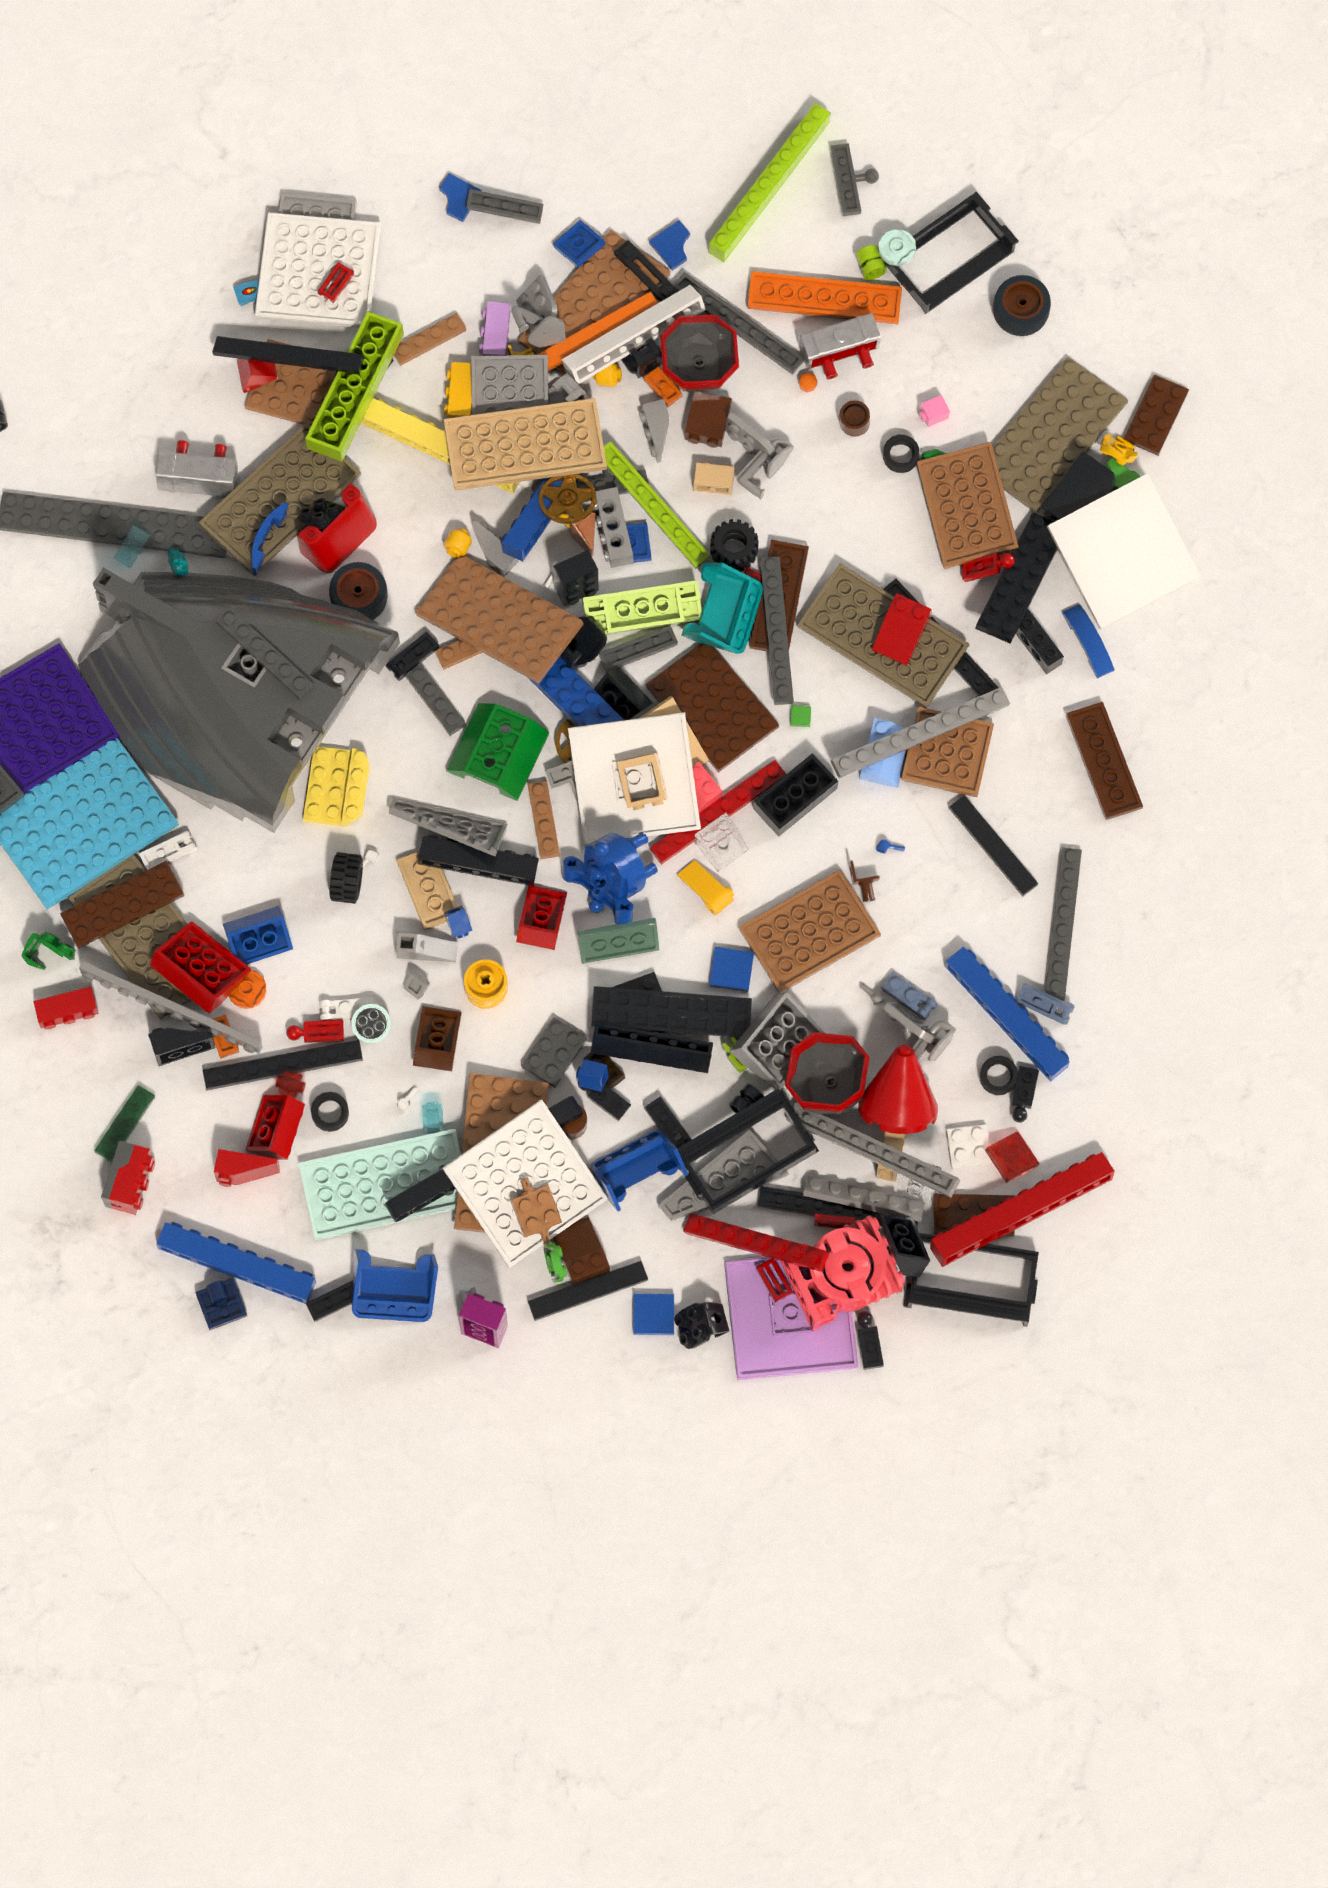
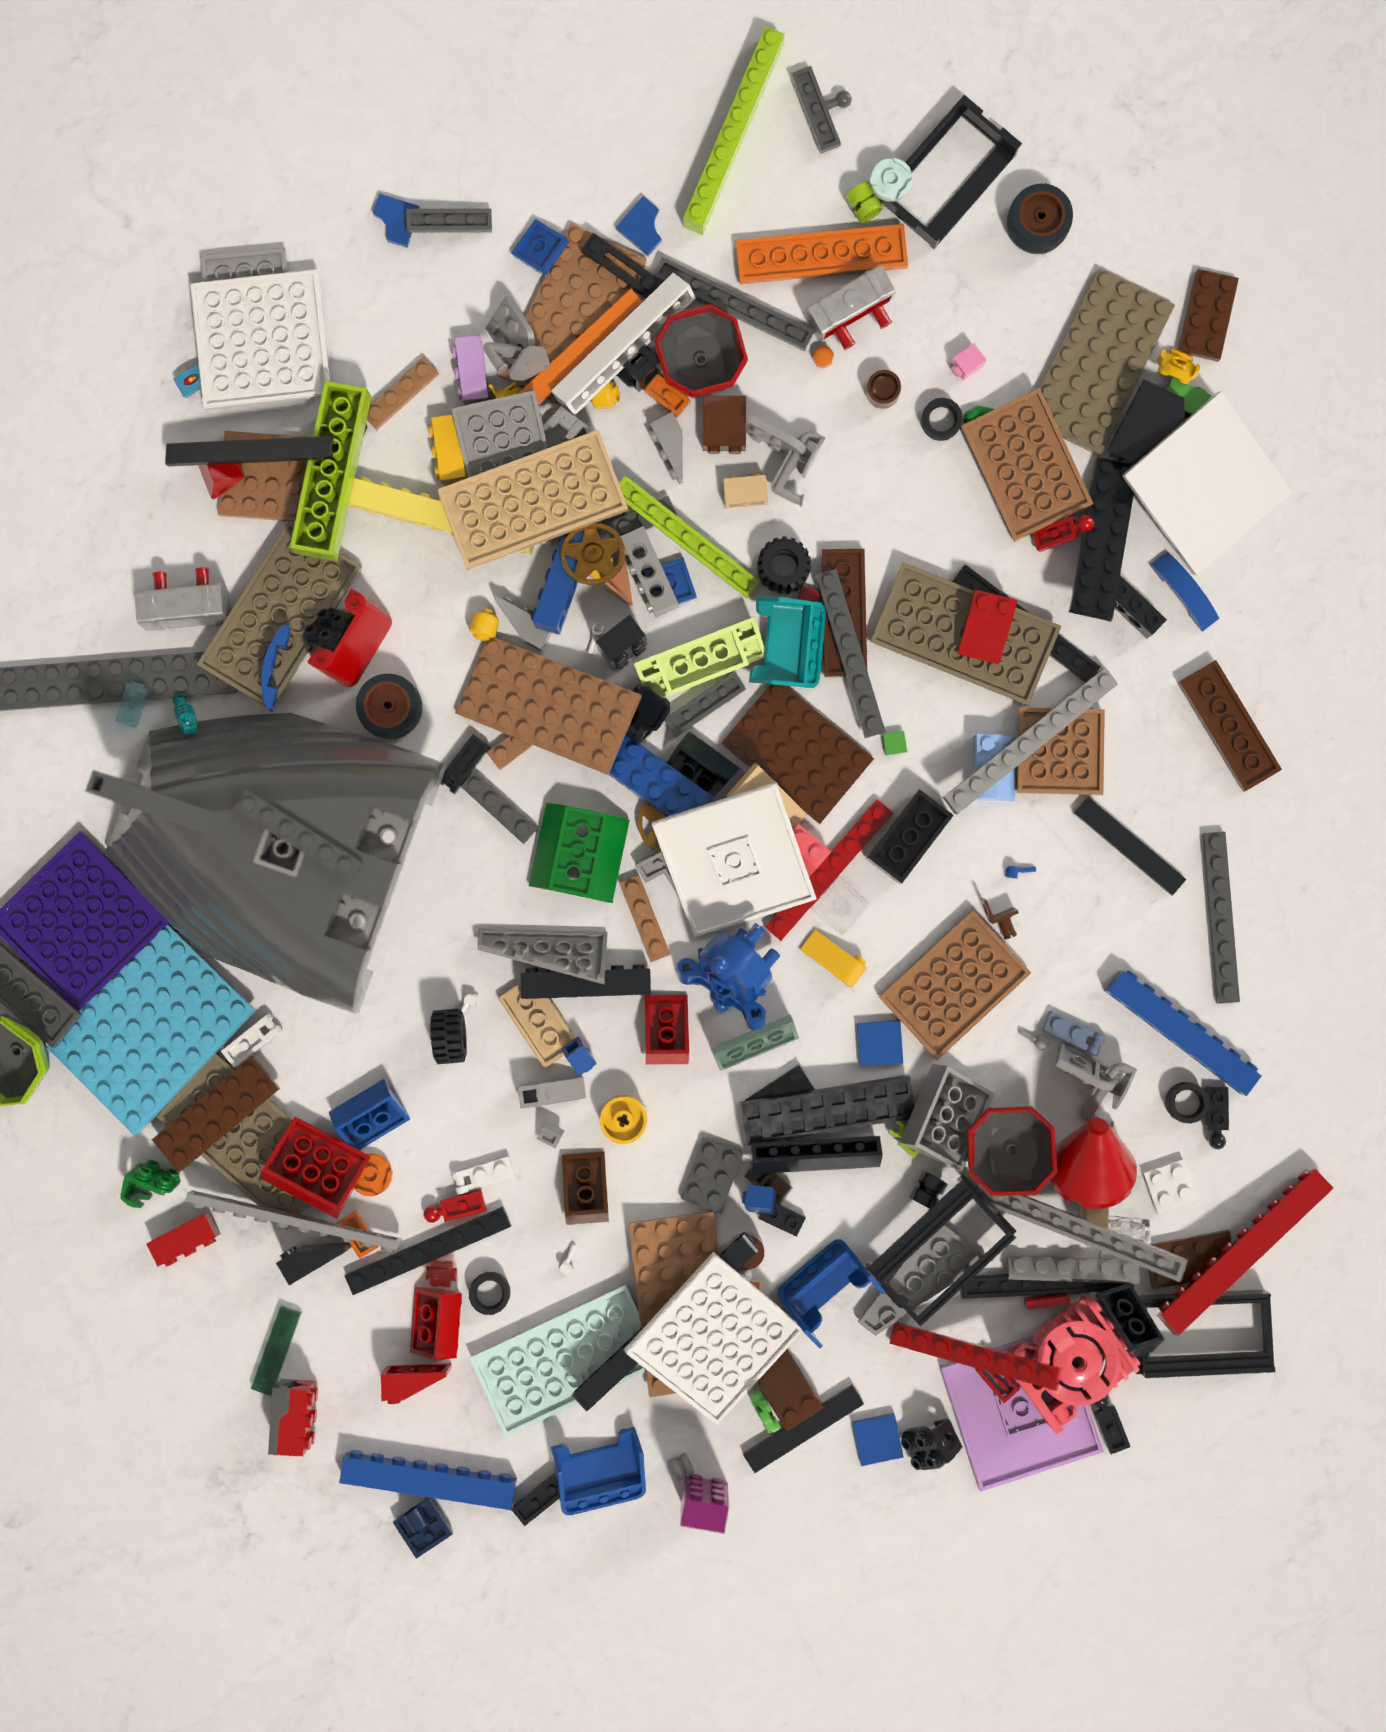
camera: 10 degrees left, 15 degrees up
(327, 295) = (297, 337): red tile -> none
(336, 786) = (416, 930): light yellow plate -> none
(370, 1023) = (511, 1187): tile -> none
(432, 1117) = (600, 1277): clear light blue brick -> none
(535, 1210) = (732, 1366): medium nougat plate -> none
(640, 760) = (744, 843): tan window -> none
(667, 1122) = (848, 1230): black plate -> none
(1012, 1157) = (1219, 1190): clear red plate -> none
(1045, 1004) = (1221, 1013): sand blue plate -> none

